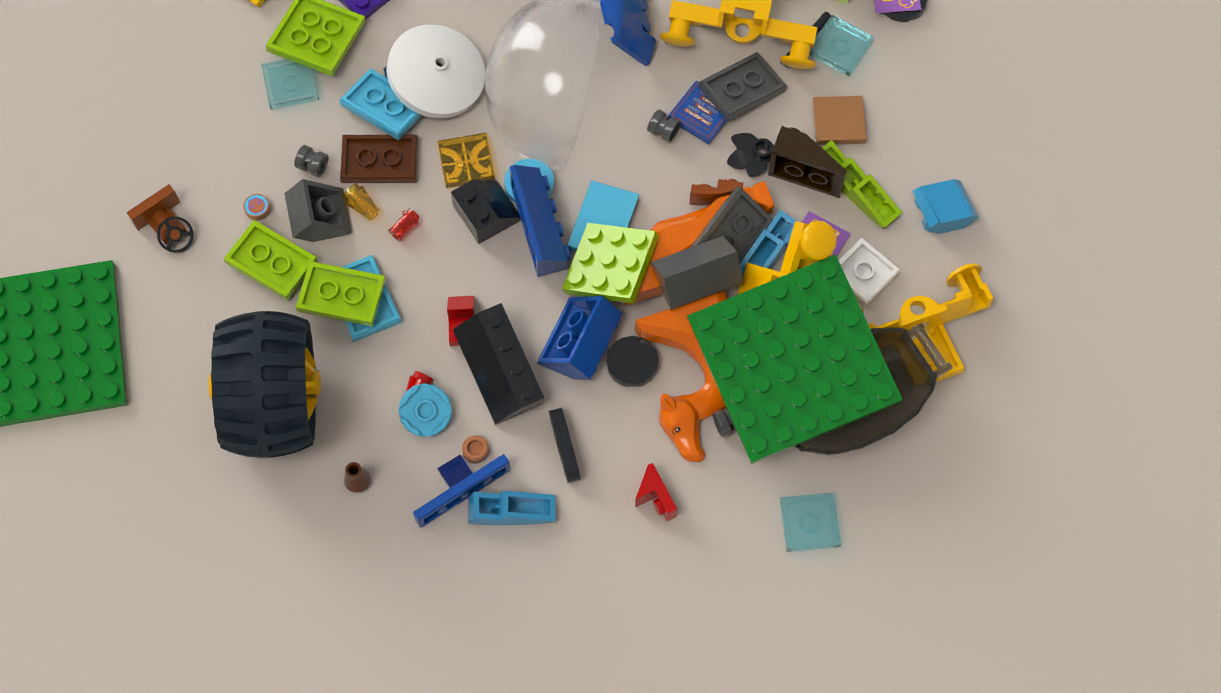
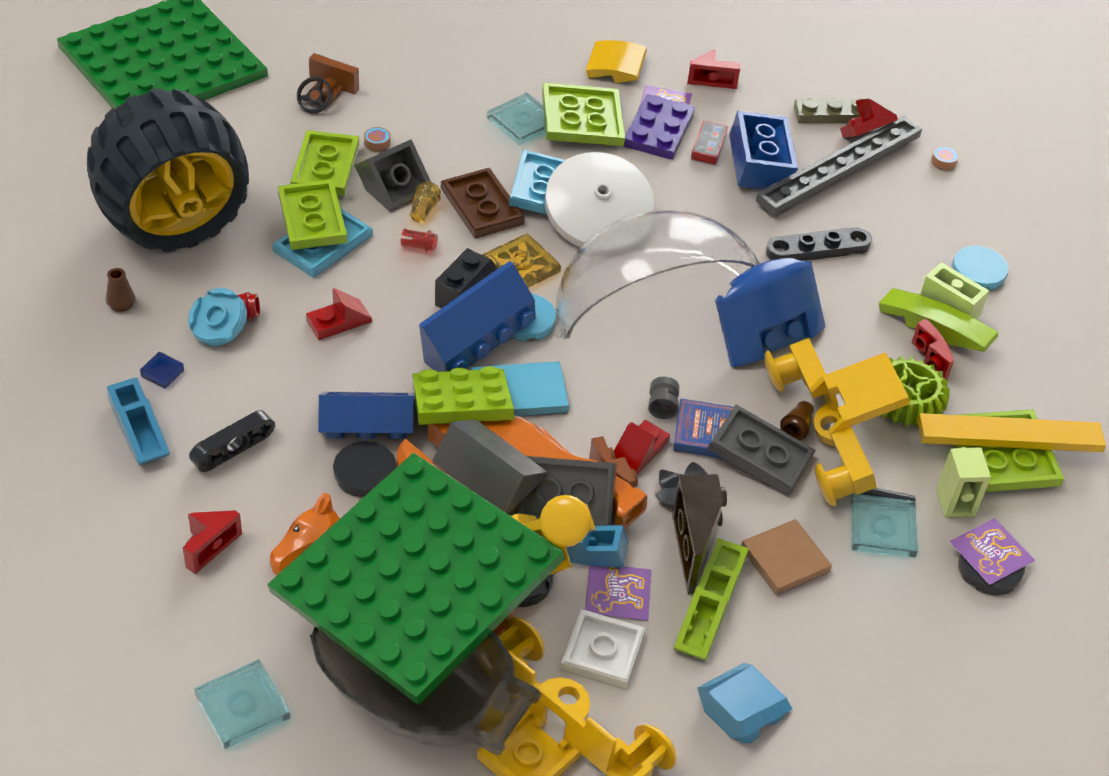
camera: 60 degrees right, 20 degrees down
(313, 161) = (446, 154): dark grey wheel -> none
(461, 491) = (151, 379): blue tile -> none
(475, 449) = (196, 376): nougat tile -> none
(498, 364) = (299, 355): black slope -> none
(699, 163) = (641, 444): none -> red slope
(727, 49) = (798, 420): none -> reddish brown cone

